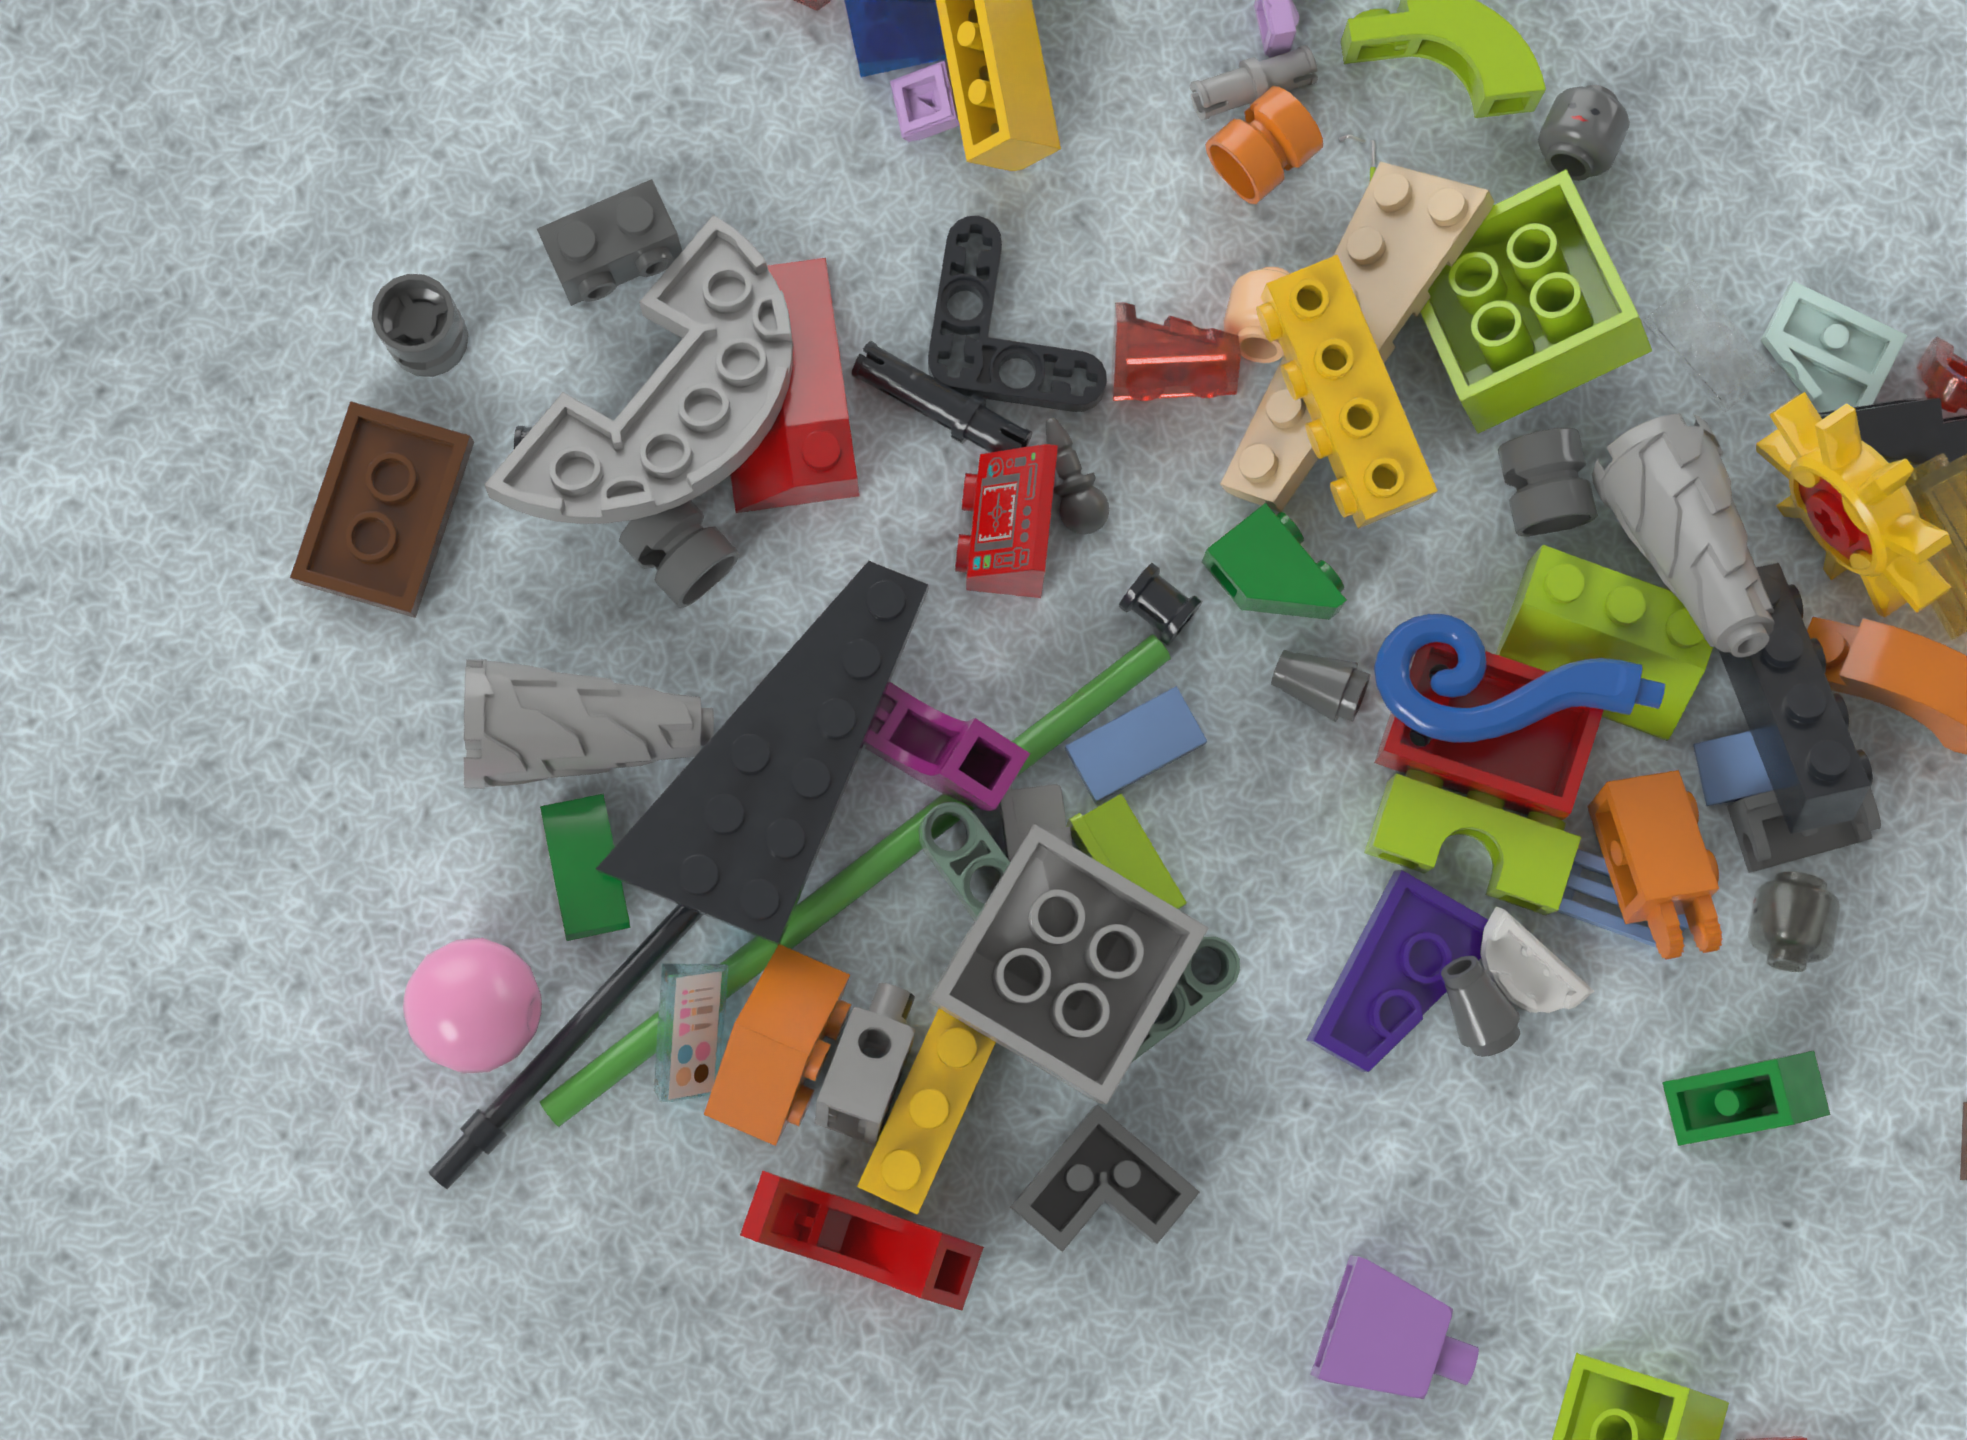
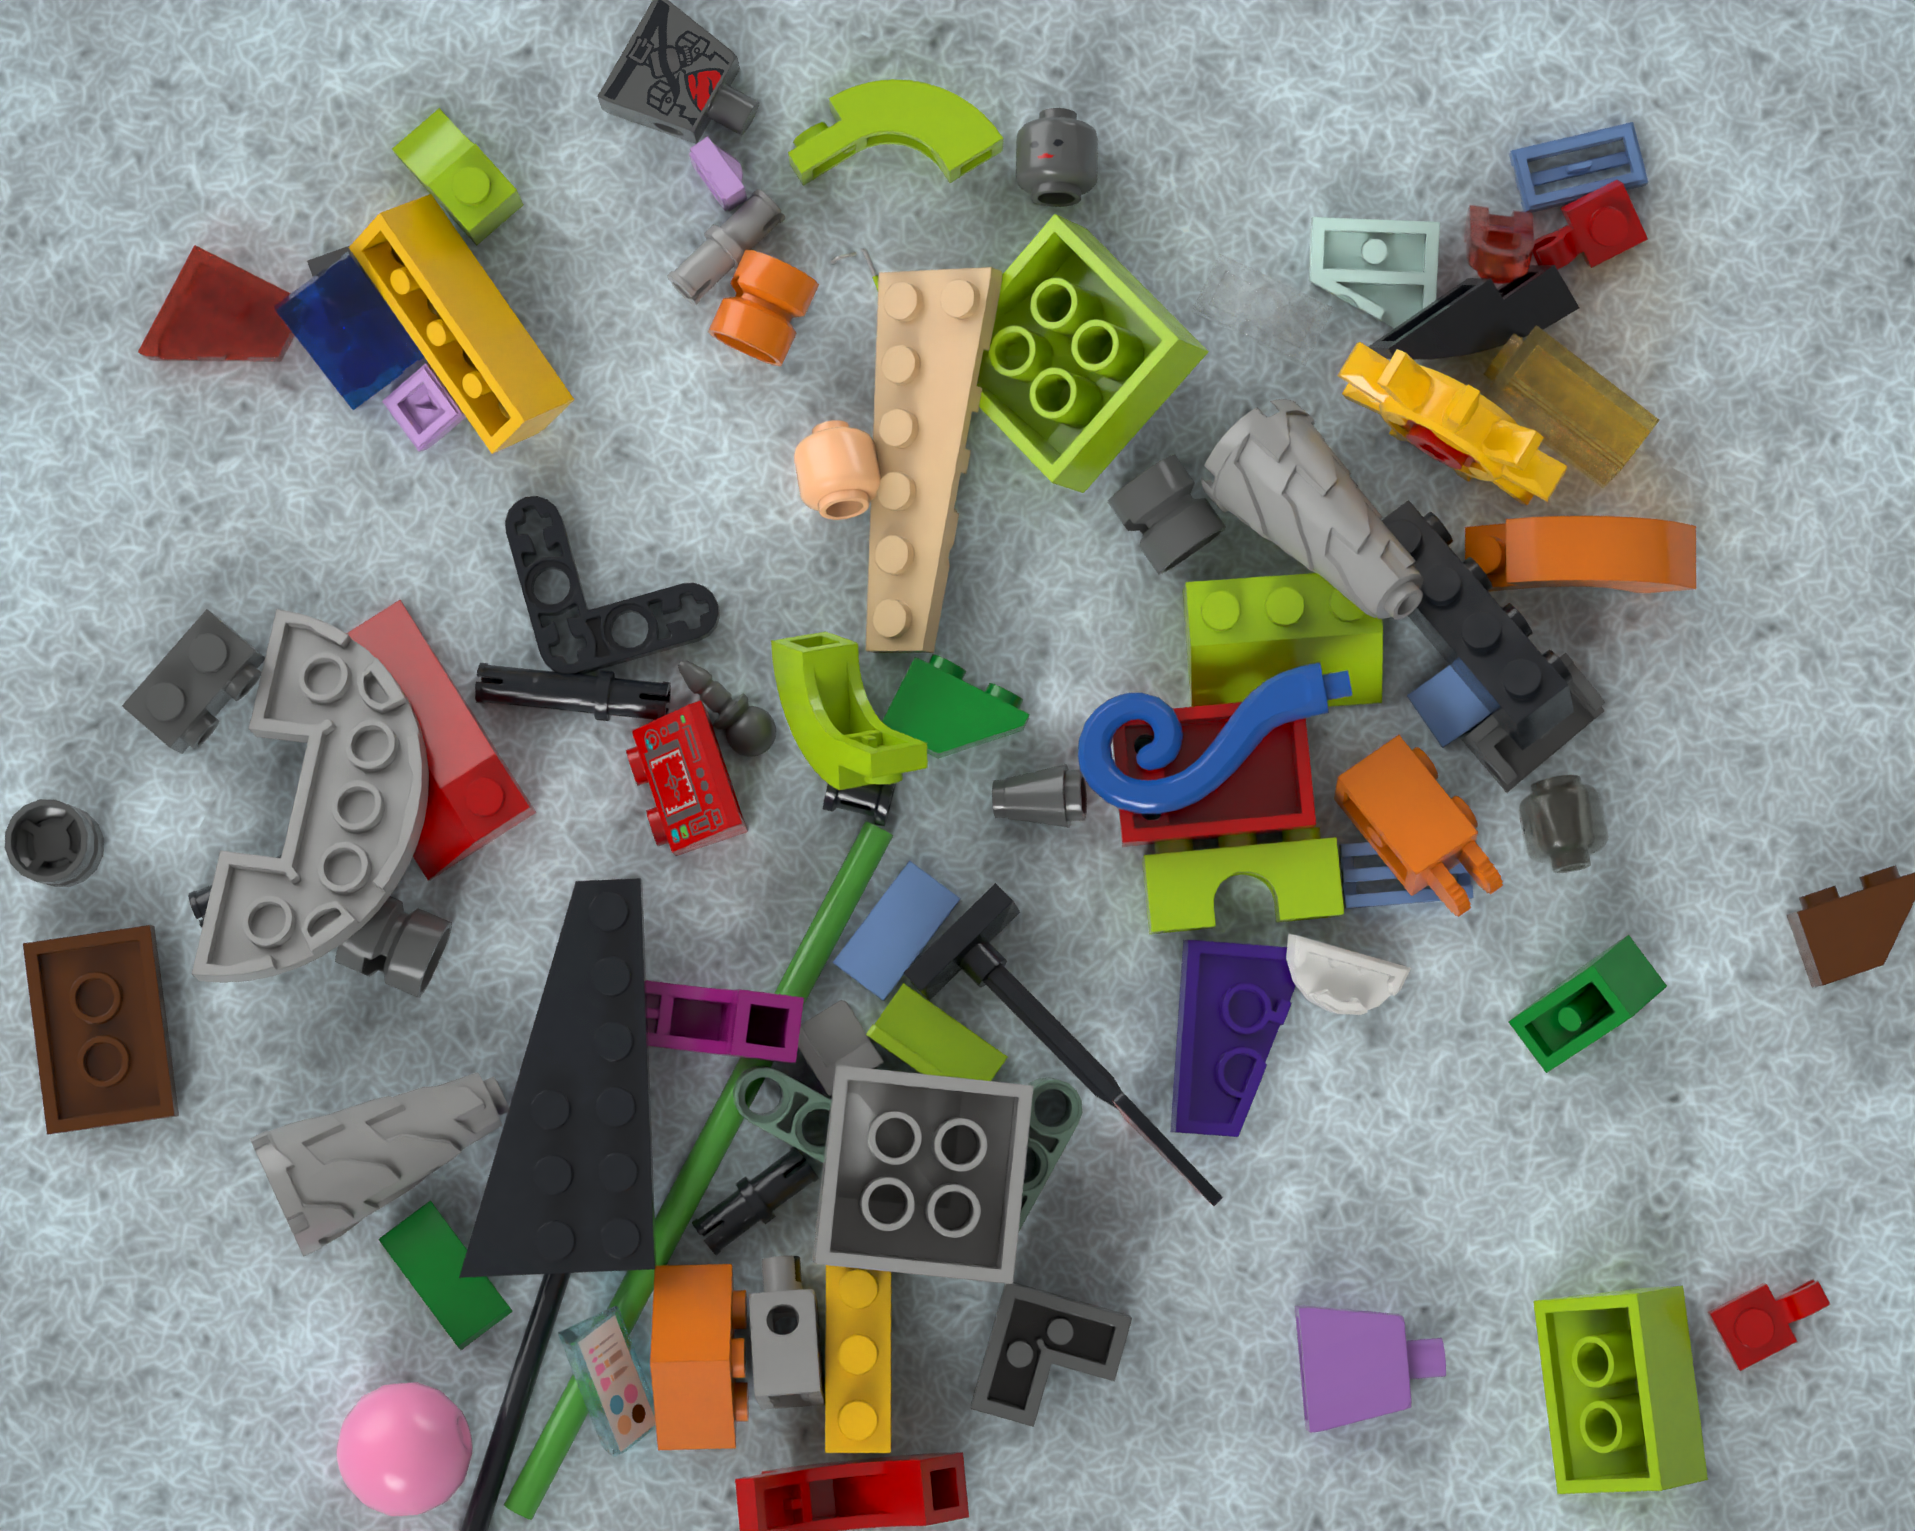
camera: 20 degrees left, 5 degrees up
(897, 928) = (755, 1200): none -> black pin
(1166, 524) = (833, 717): none -> lime arch
(1171, 358) = (770, 558): clear red wing -> none
(1196, 787) = (968, 949): none -> black piece
(1346, 392) = (943, 523): yellow brick -> none
(1479, 1008) = (1313, 1033): dark grey cone -> none

